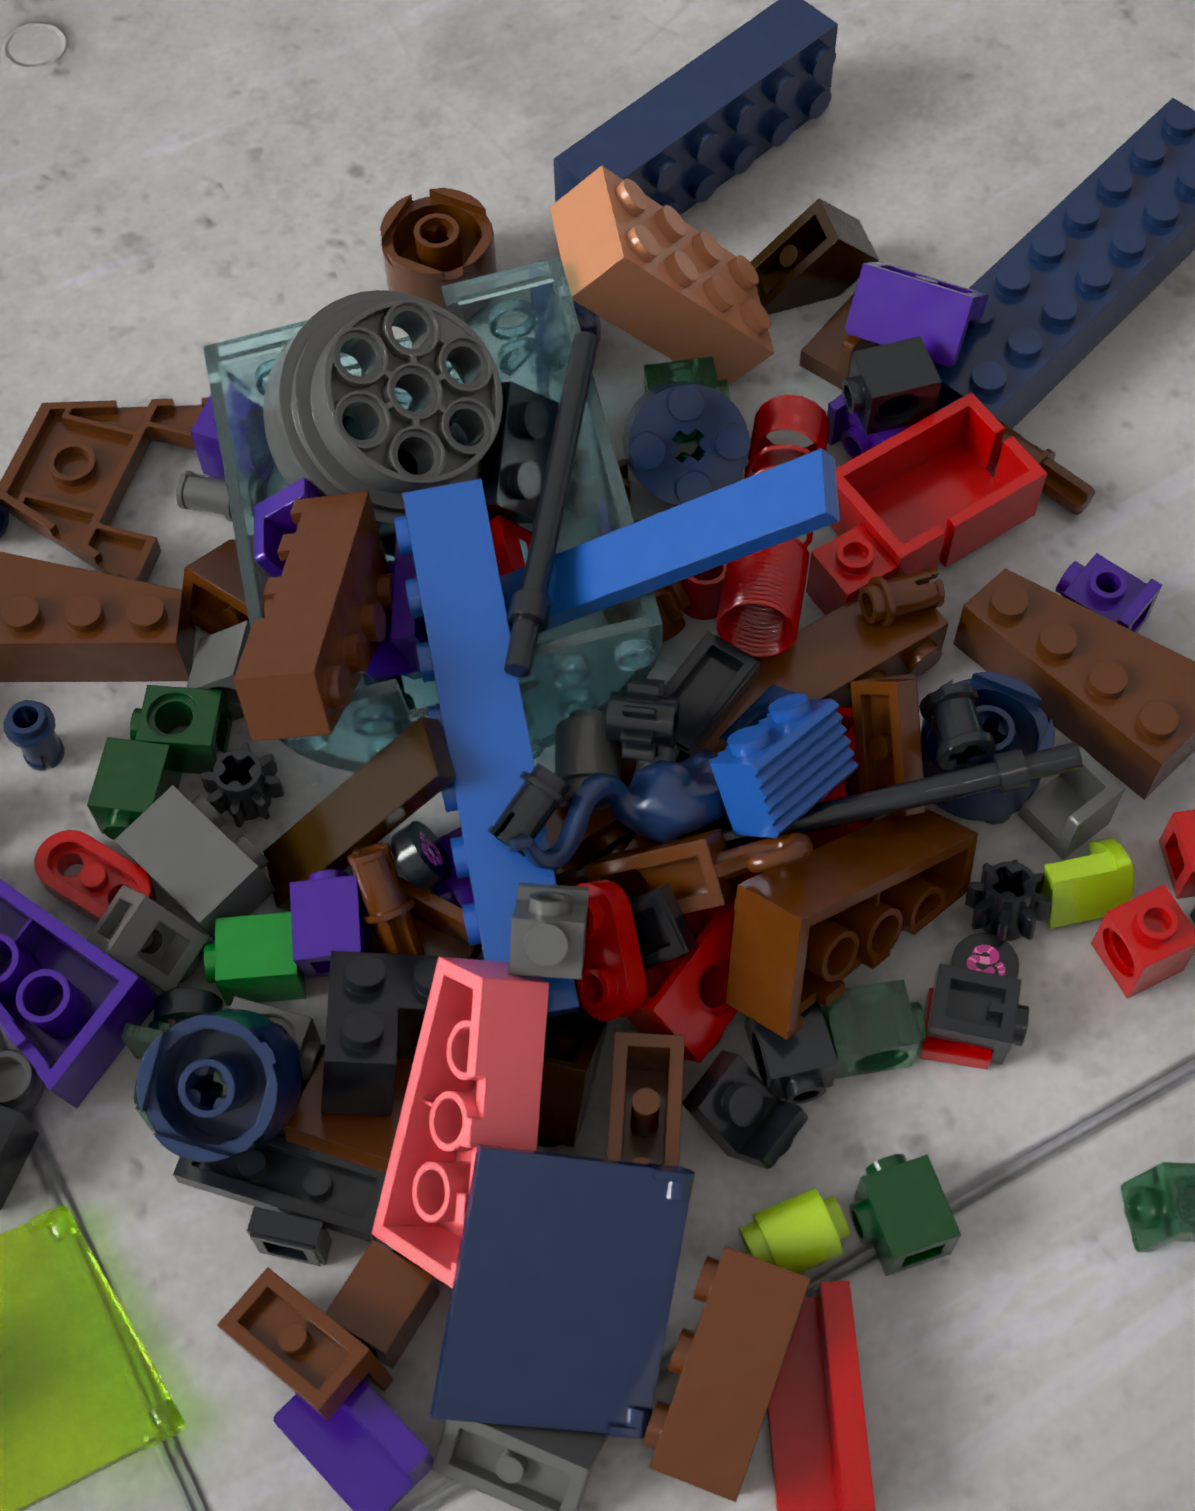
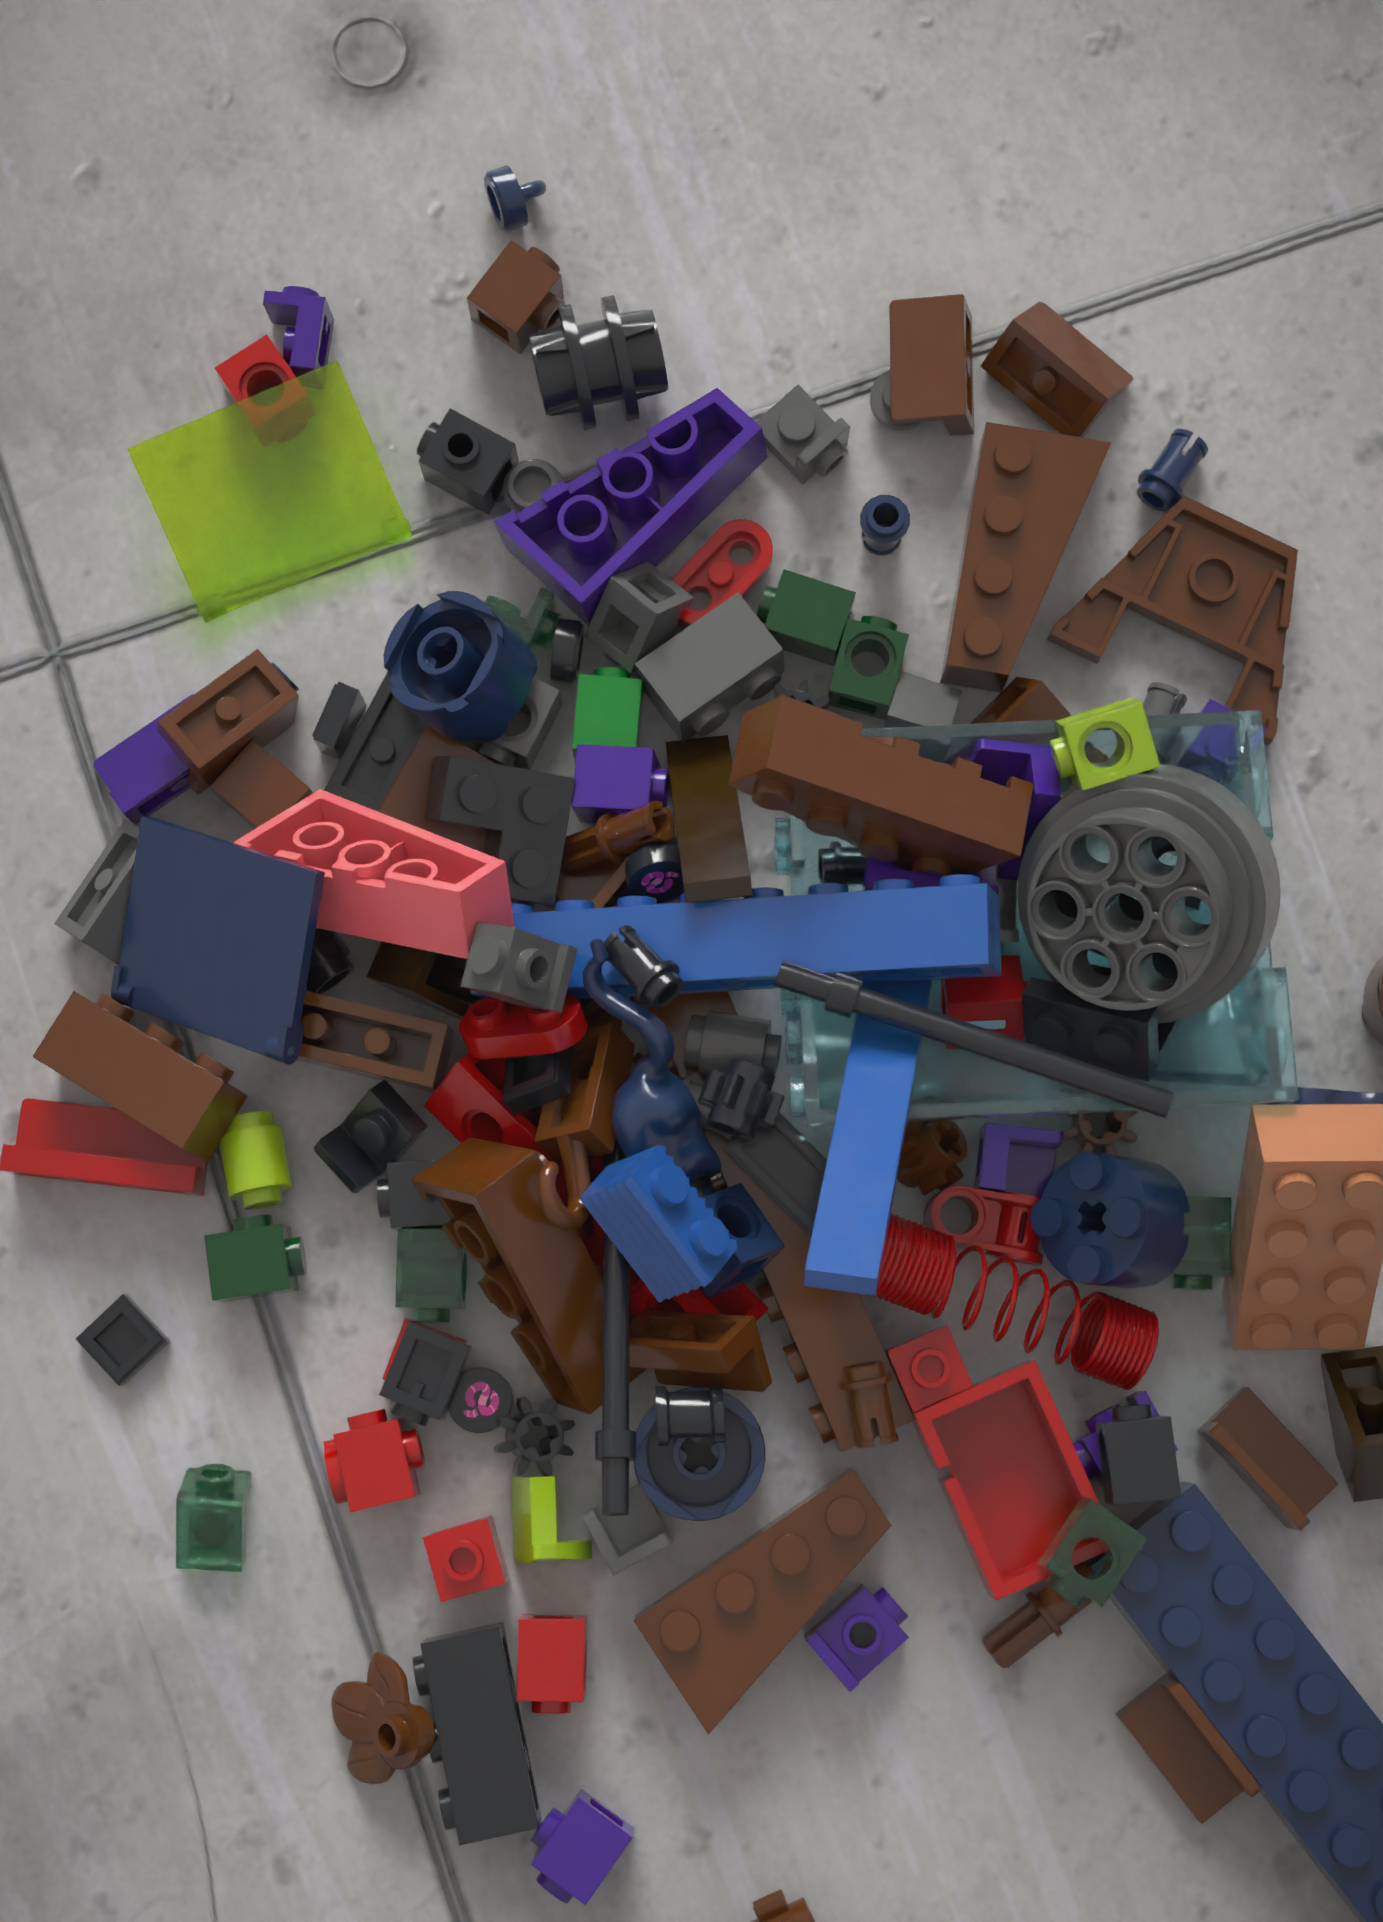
camera: 100 degrees right, 20 degrees up
(249, 441) = (1133, 752): none -> lime brick
(904, 304) = (1235, 1508): dark purple panel -> none
(987, 394) = (1120, 1545): none -> clear green brick
(1022, 1351) = (122, 1340): none -> black tile
(1078, 1049) = (373, 1461): none -> red brick
(1112, 352) = (1186, 1748): none -> reddish brown panel

